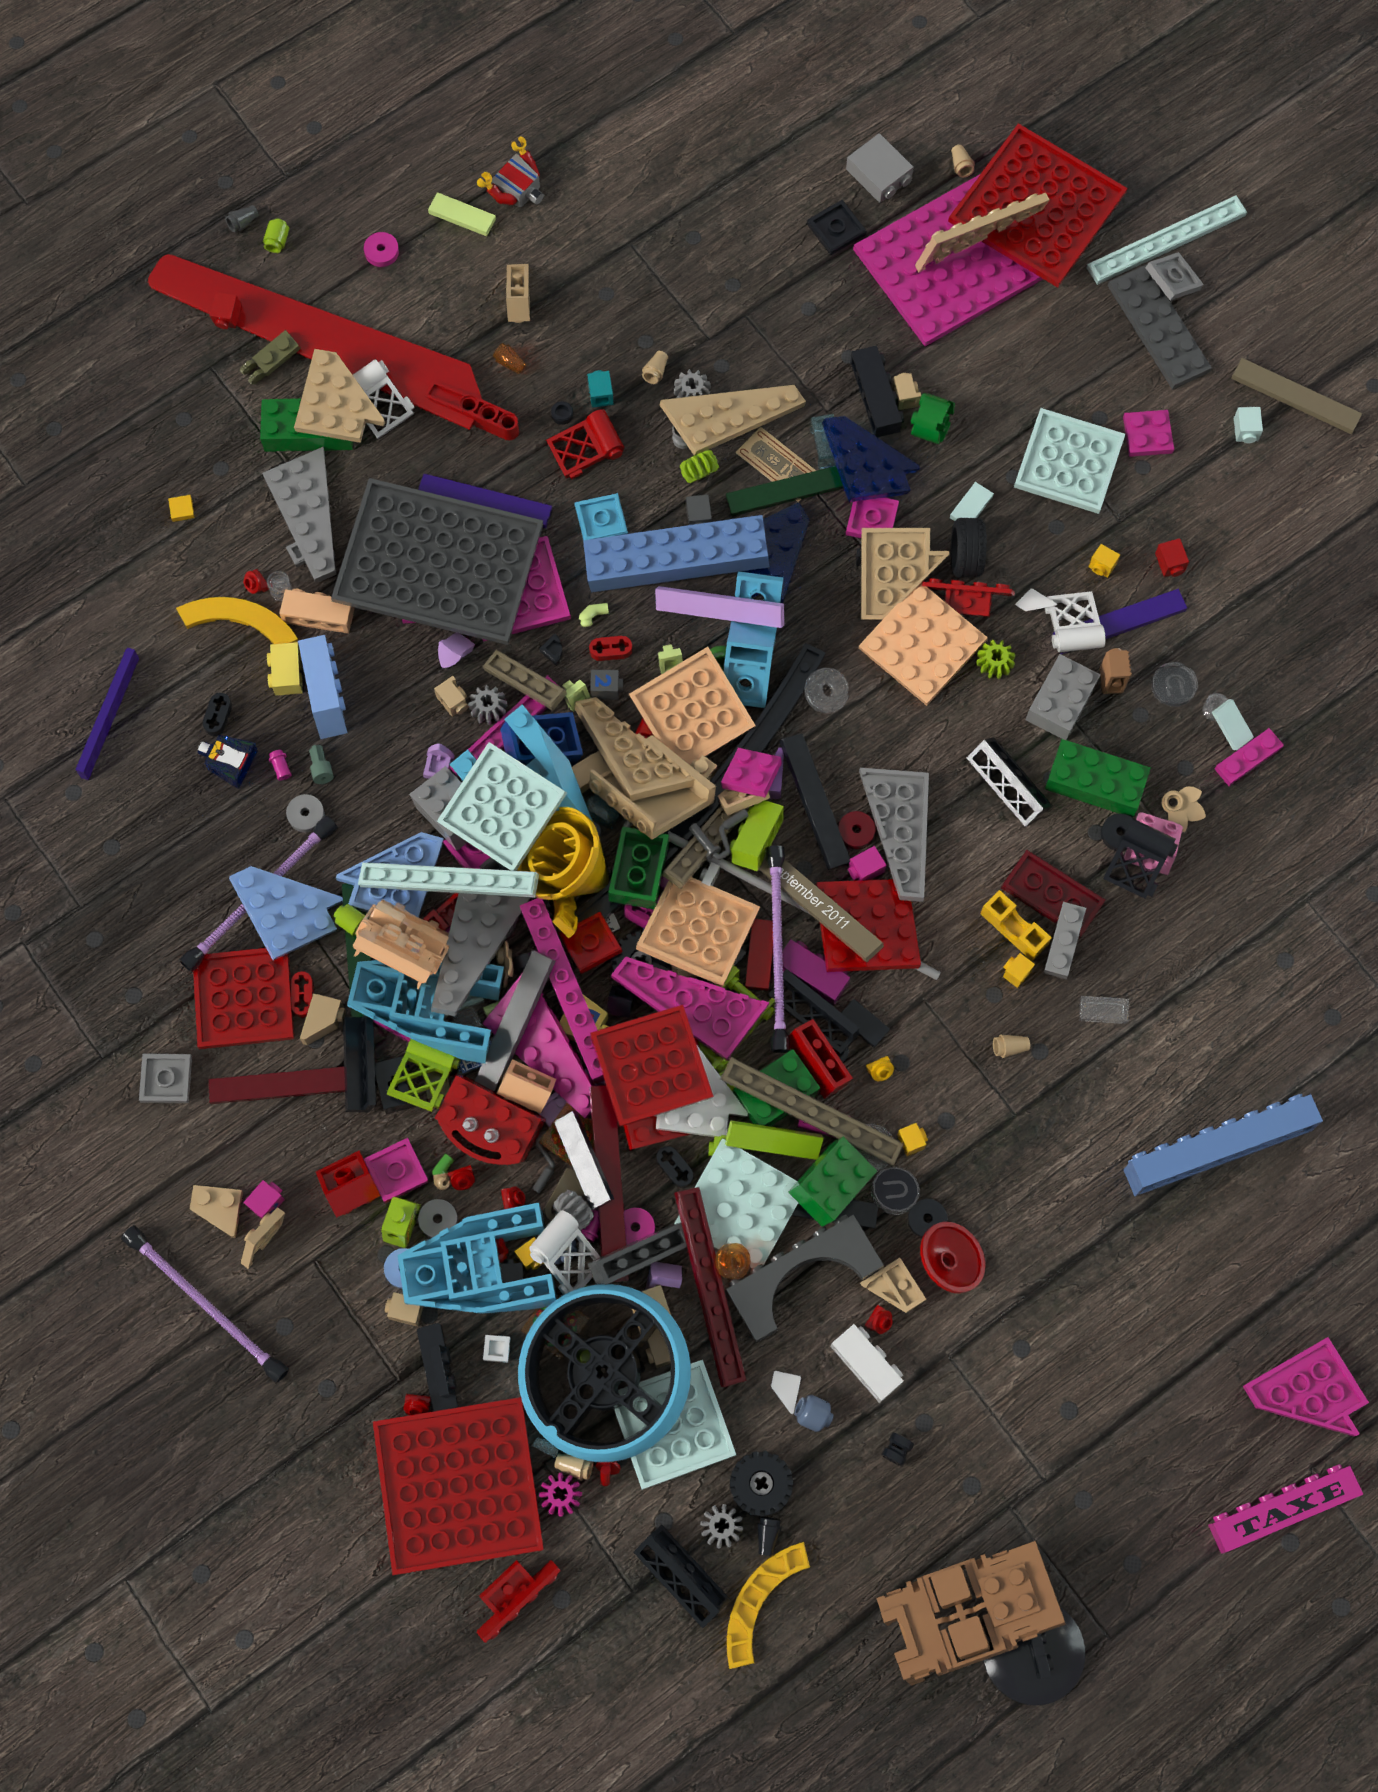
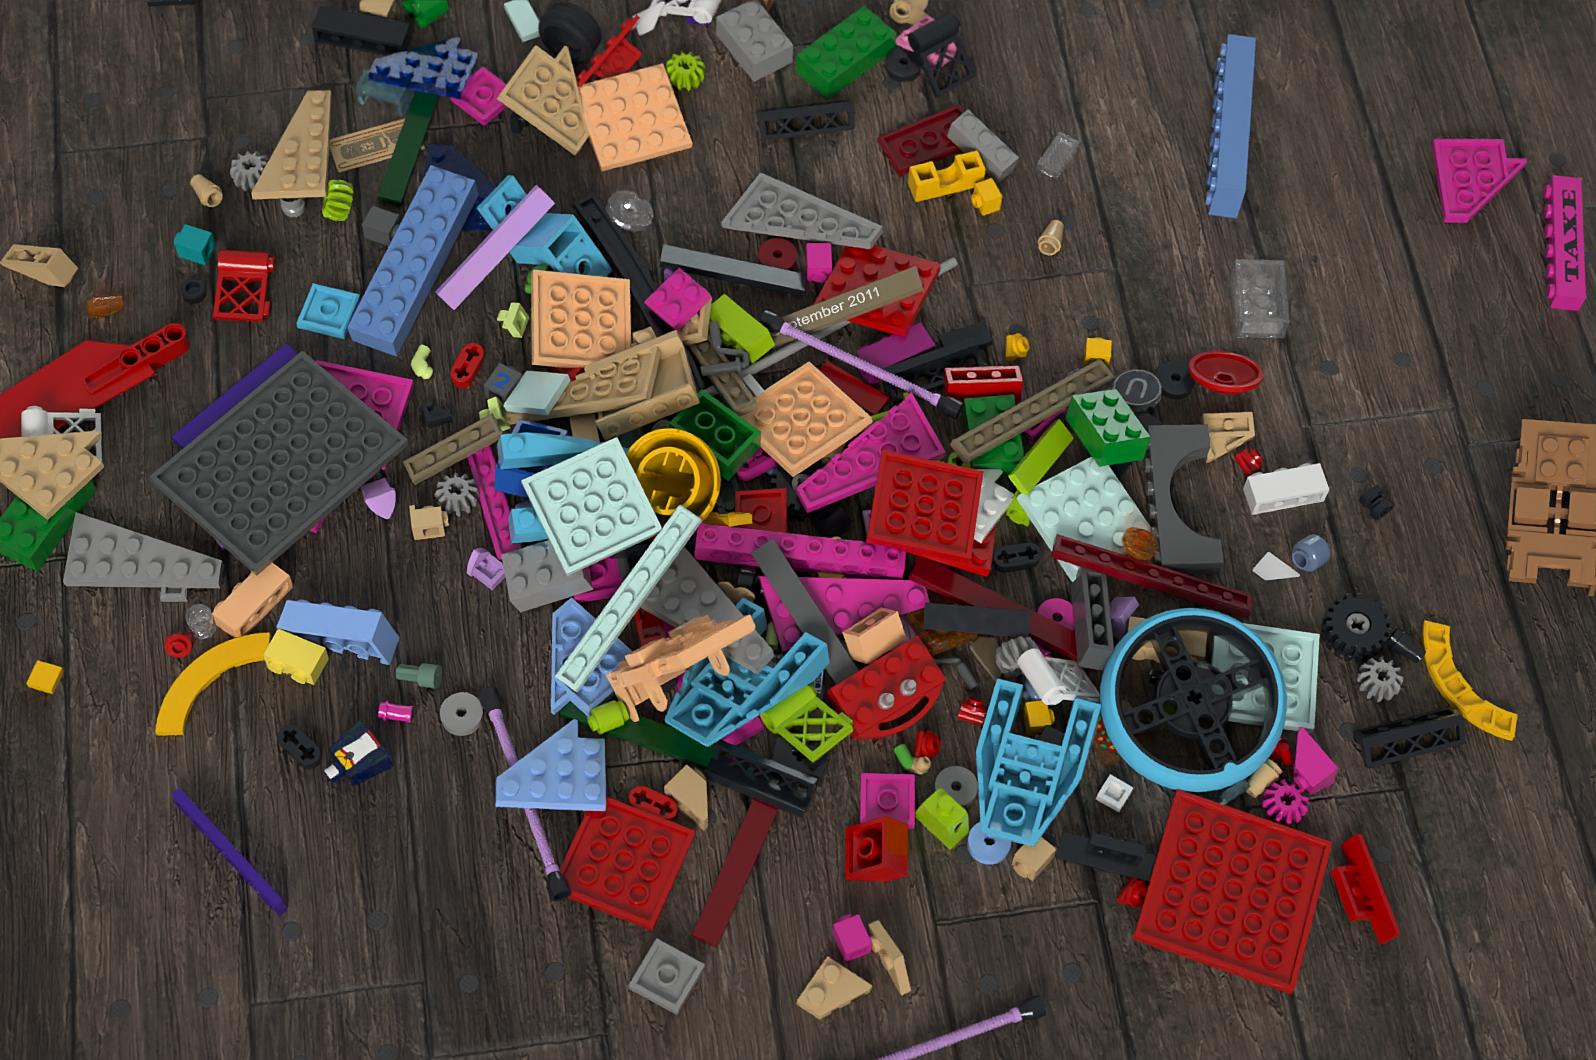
camera: 65 degrees left, 10 degrees down
(600, 1499) = (1311, 765): none -> dark pink slope
(606, 713) = (537, 393): none -> light aqua tile
(1048, 1253) = (1259, 298): none -> clear brick

